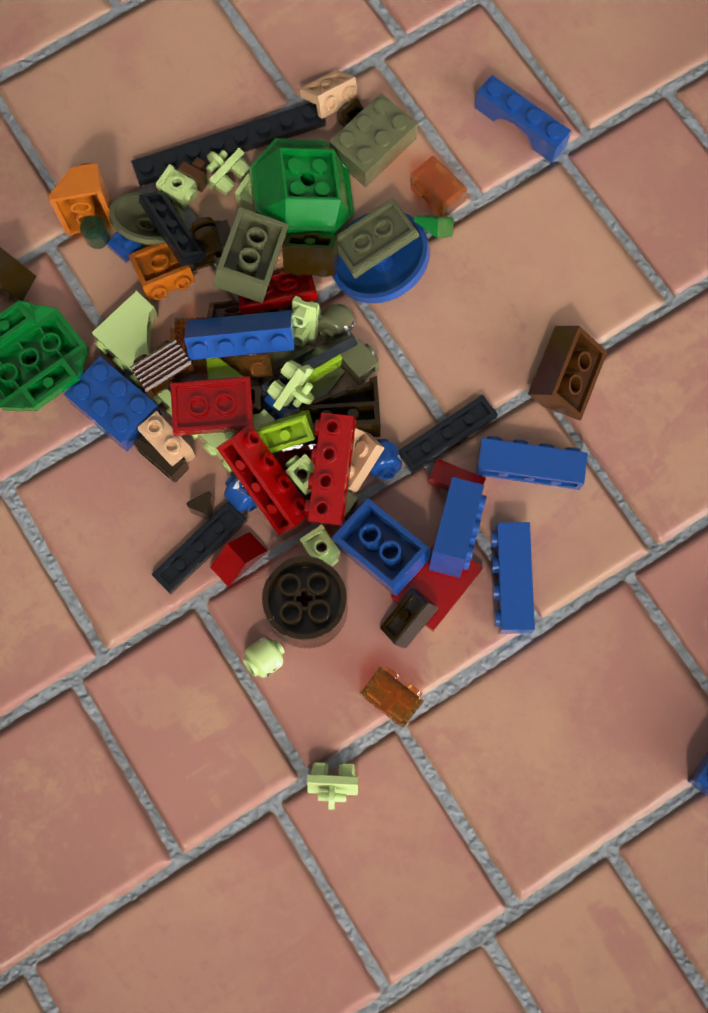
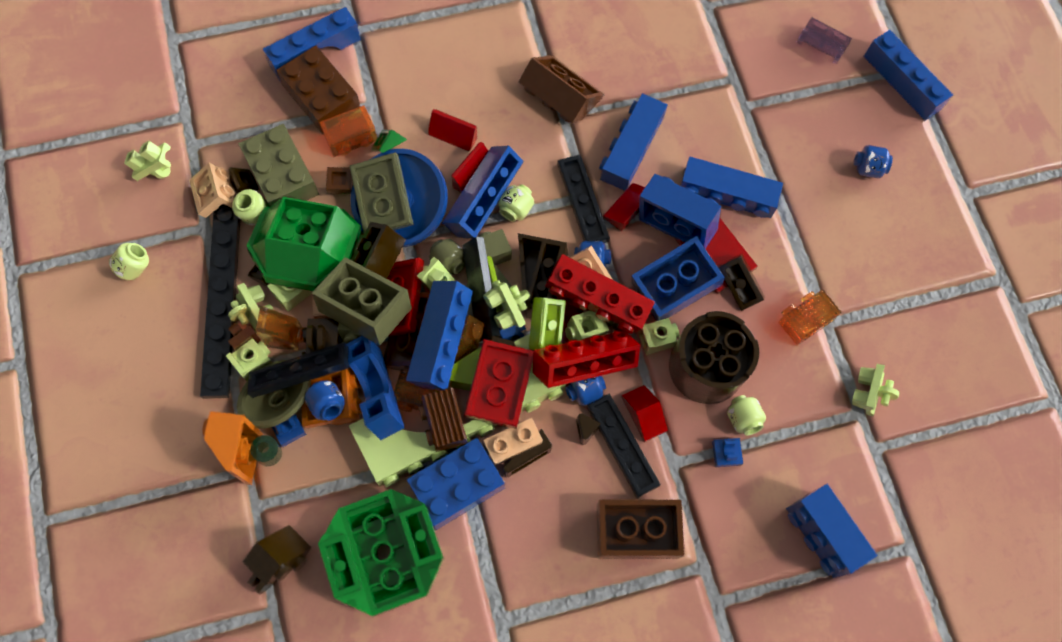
camera: 80 degrees left, 5 degrees down
(115, 581) = (640, 529): none -> reddish brown brick
(148, 311) = (380, 408): none -> blue arch
(149, 260) = (324, 400): none -> blue head
(162, 765) = (830, 532): none -> blue brick
(208, 196) = (279, 329): none -> clear orange slope
(222, 650) = (727, 452): none -> blue tile
(235, 51) = (129, 261): none -> yellowish green head
(322, 126) = (248, 206): none -> yellowish green head
(338, 28) = (149, 161): none -> yellowish green hips
(378, 194) = (339, 180): none -> reddish brown tile
(415, 331) = (483, 192): none -> blue brick
(416, 367) = (516, 203): none -> yellowish green head
(440, 315) = (468, 167): none -> red slope
(474, 142) = (317, 86): none -> reddish brown brick
(476, 283) = (452, 130): none -> red slope
(603, 726) = (873, 161): none -> blue head

